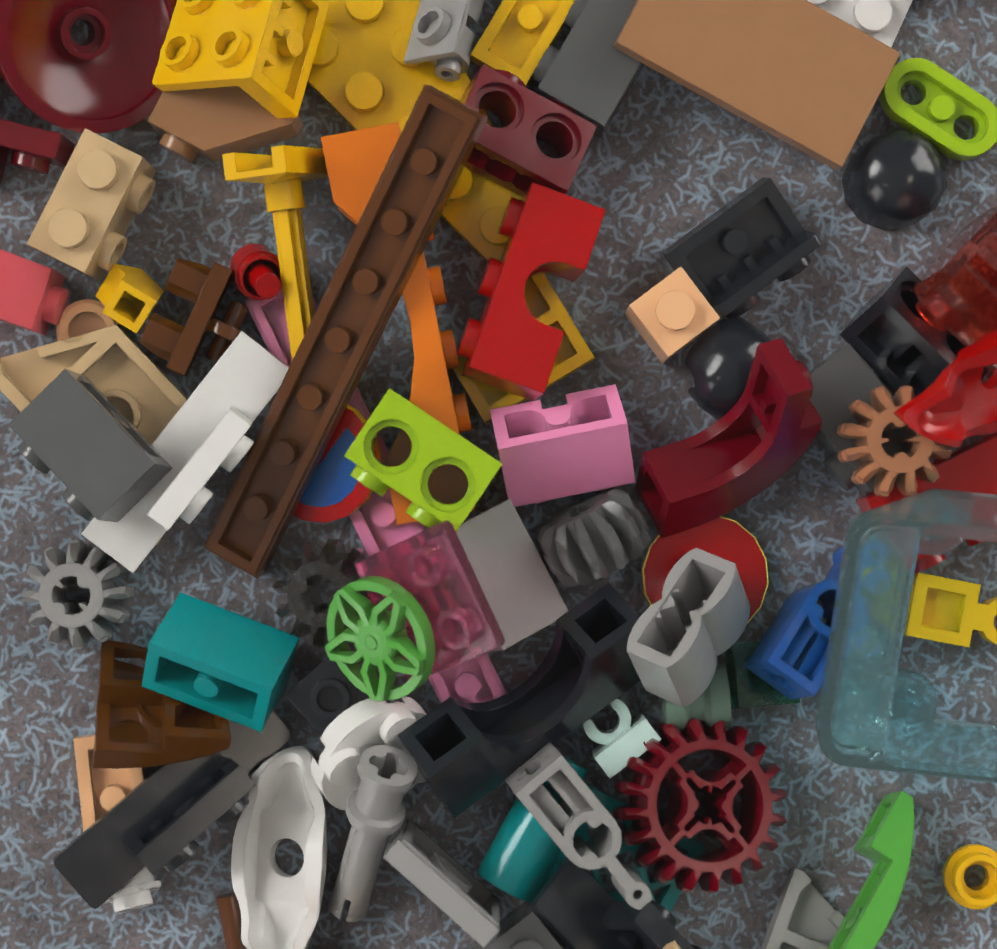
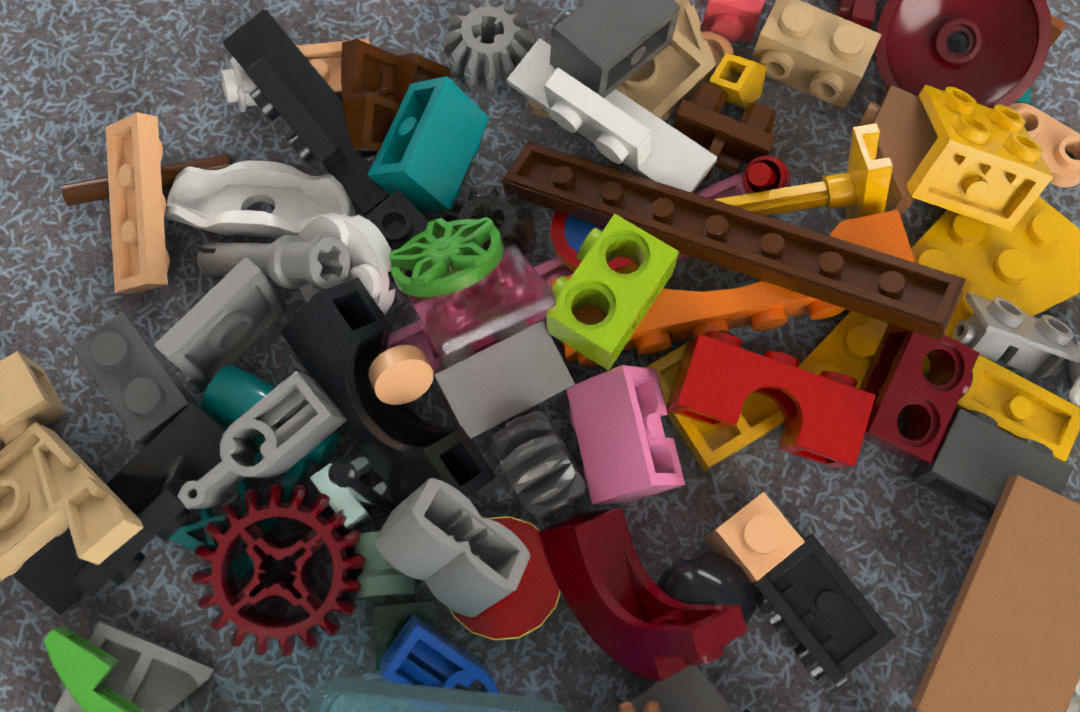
camera: 85 degrees right, 15 degrees down
(503, 686) = (401, 374): none -> light nougat tile
(613, 740) = (345, 475): none -> black hinge

